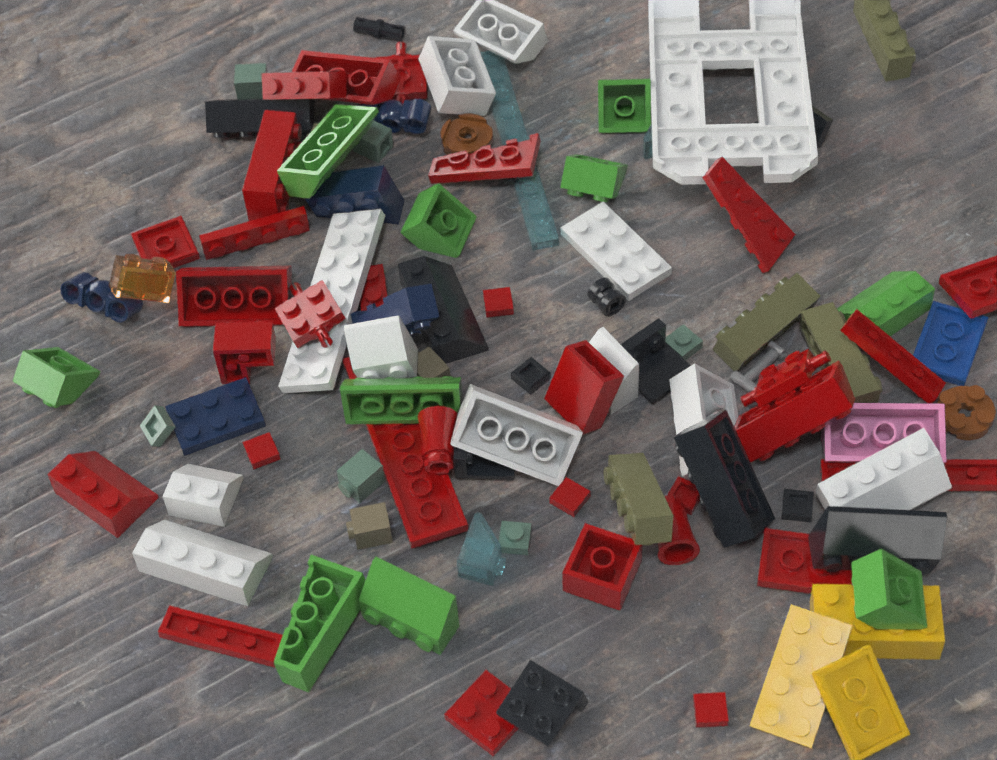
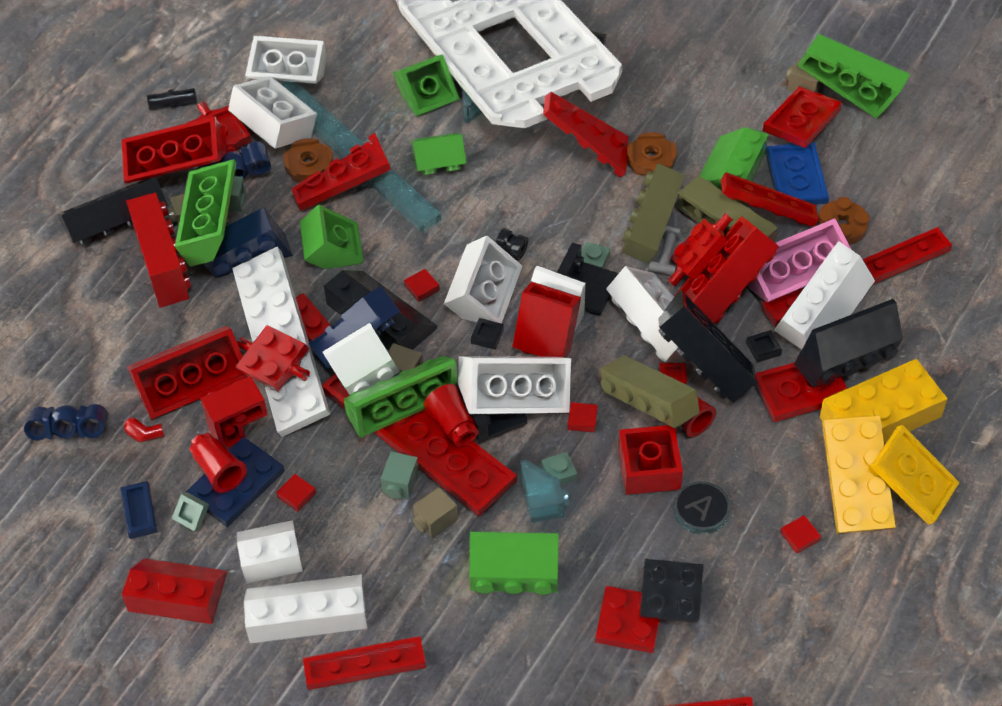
camera: 30 degrees left, 0 degrees up
(54, 375) = (64, 509): bright green slope -> none
(117, 405) = (138, 510): none -> dark blue tile
(142, 278) = (100, 389): clear orange brick -> none
(161, 334) = (140, 432): none -> red arm
(166, 240) = (93, 356): red tile -> none
(201, 392) = (218, 464): none -> red plant
(249, 80) = (86, 183): sand green brick -> none
(254, 233) = (172, 312): red plate -> none
(304, 85) = (148, 166): brick -> none
(318, 621) = (443, 601): bright green wedge -> none
(555, 321) = (483, 282): none -> white slope
(616, 251) = (491, 204): white plate -> none
(629, 637) = (701, 507): none -> black tile
(809, 248) = (648, 142): none -> dark orange plate
(888, 592) = (888, 379): bright green slope -> none

